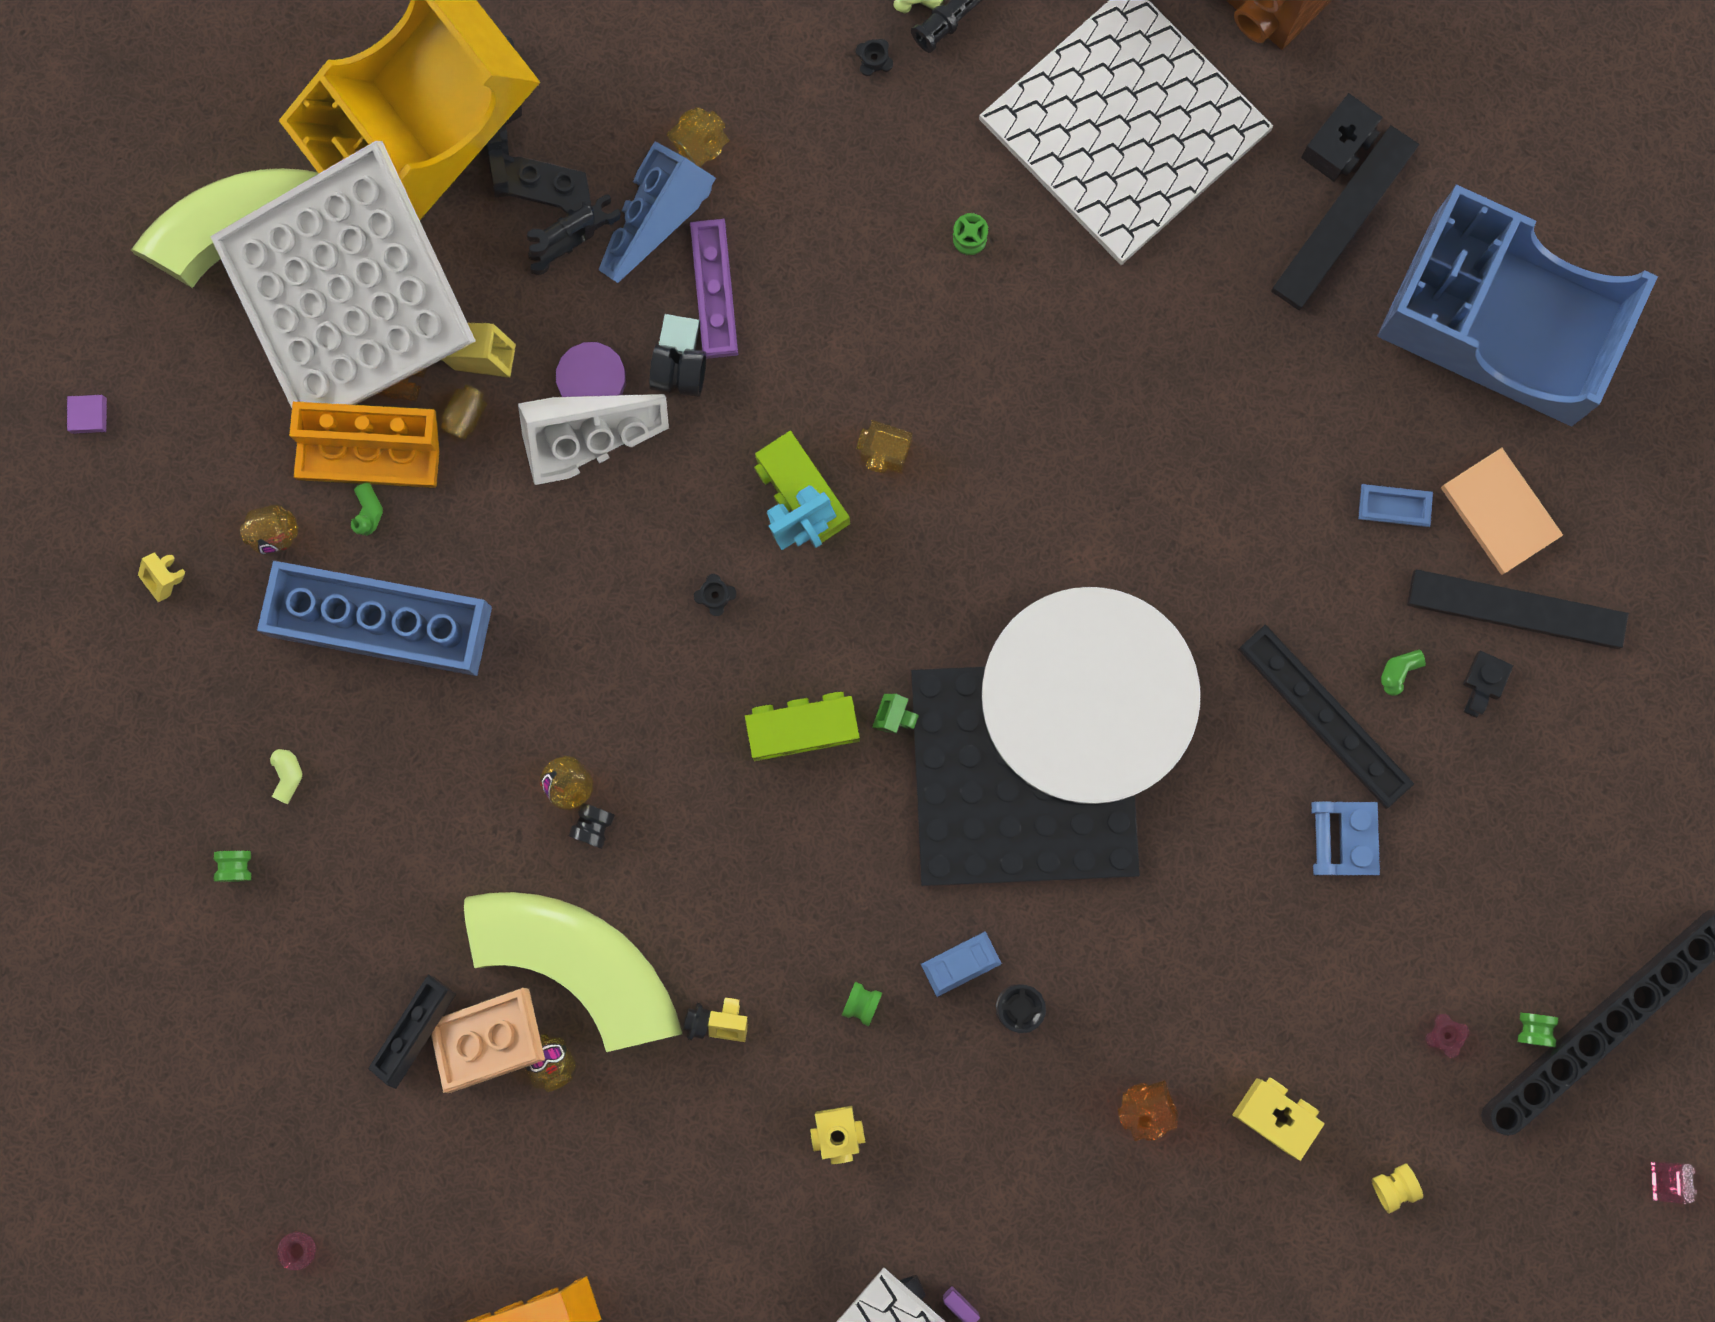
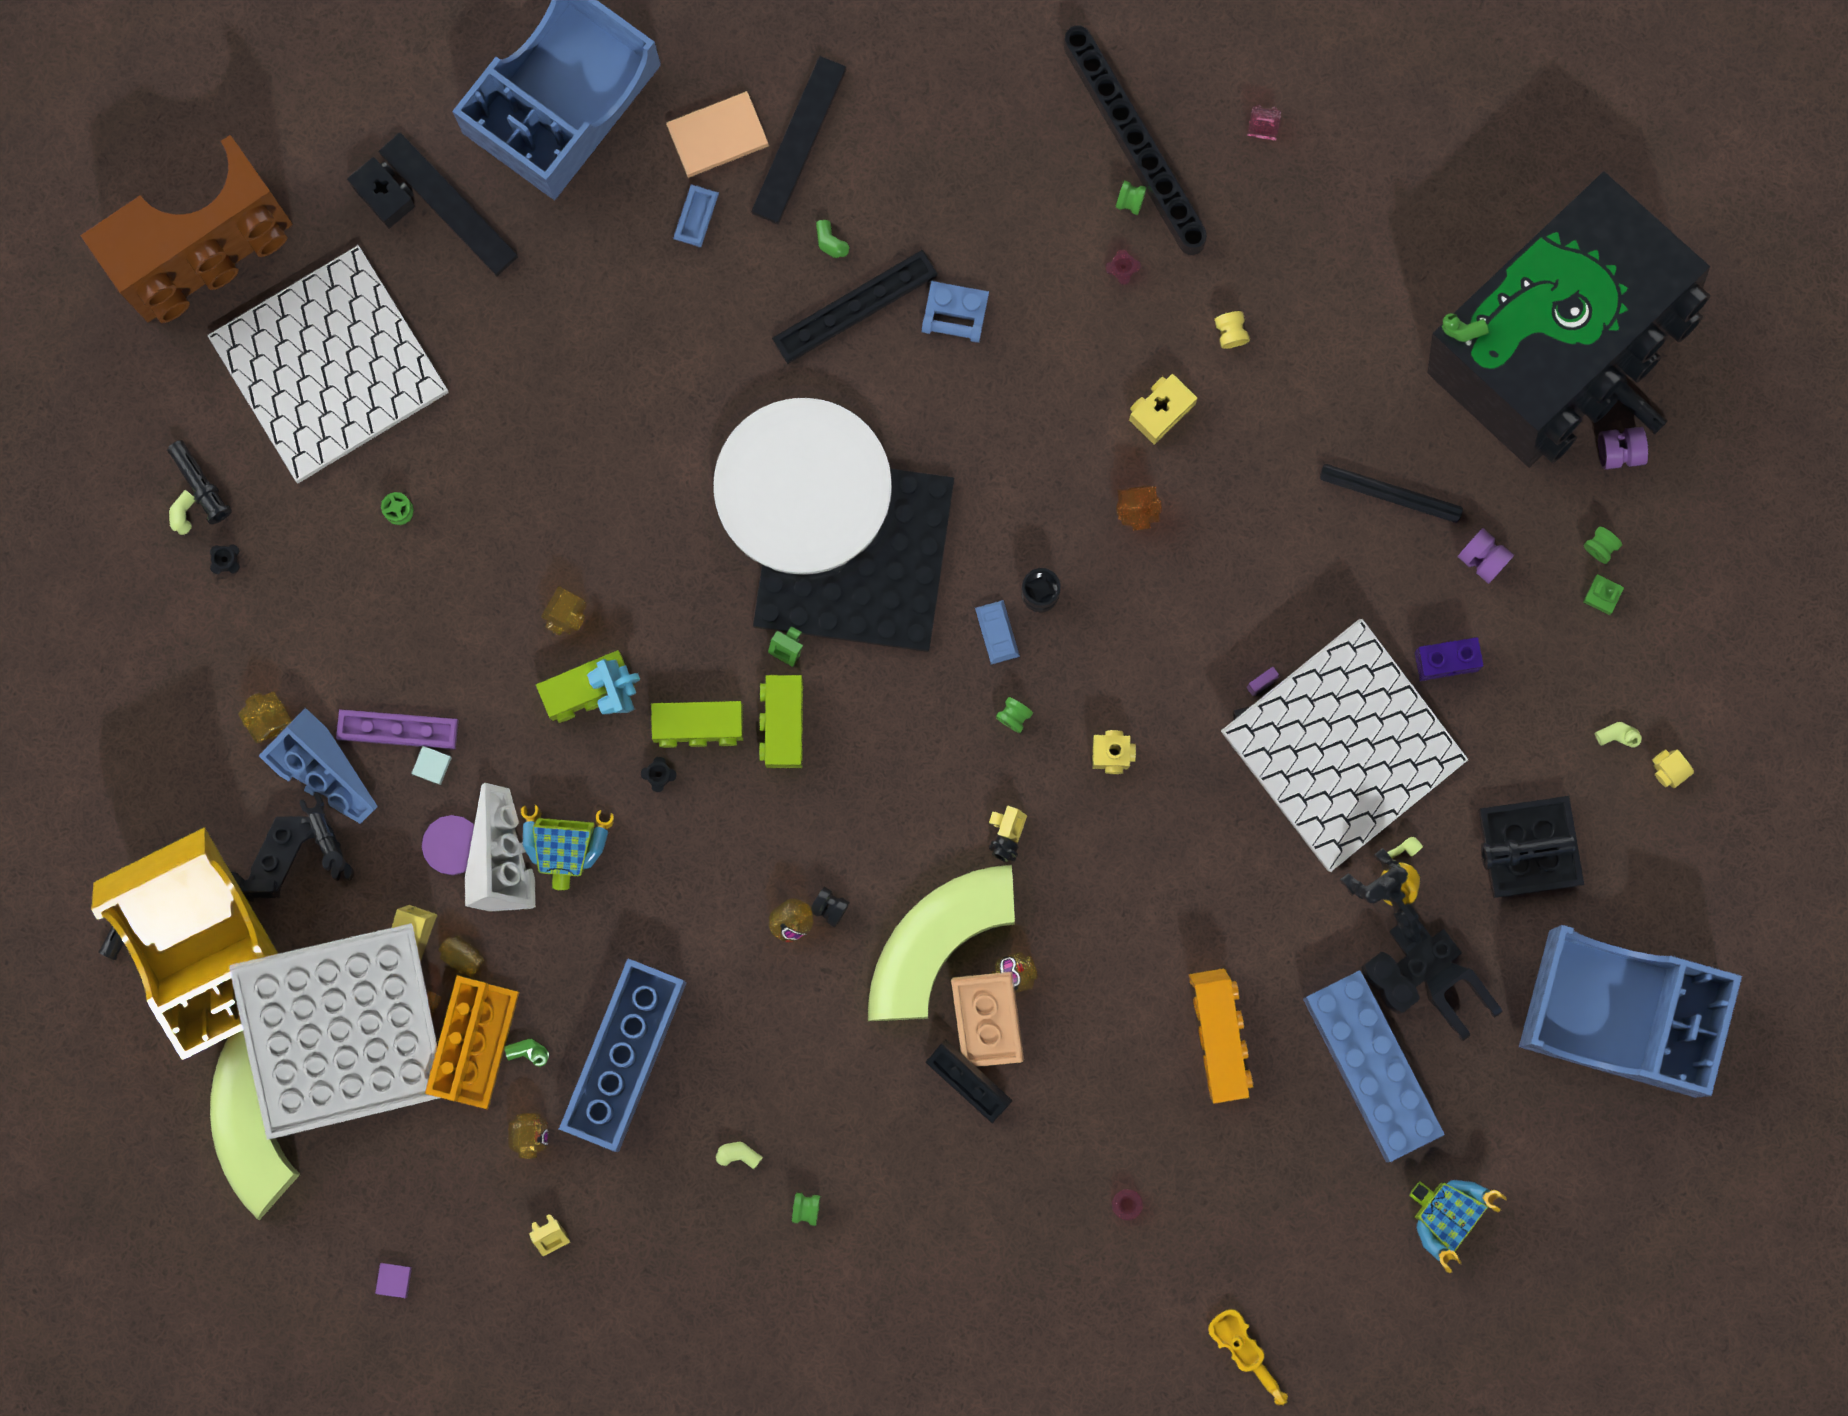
camera: 80 degrees left, 0 degrees up
(608, 500) = (563, 845): none -> torso
(677, 370) = (463, 769): black wheel -> none
(781, 627) = (697, 723): none -> lime brick
(1487, 679) = (851, 176): black plate -> none

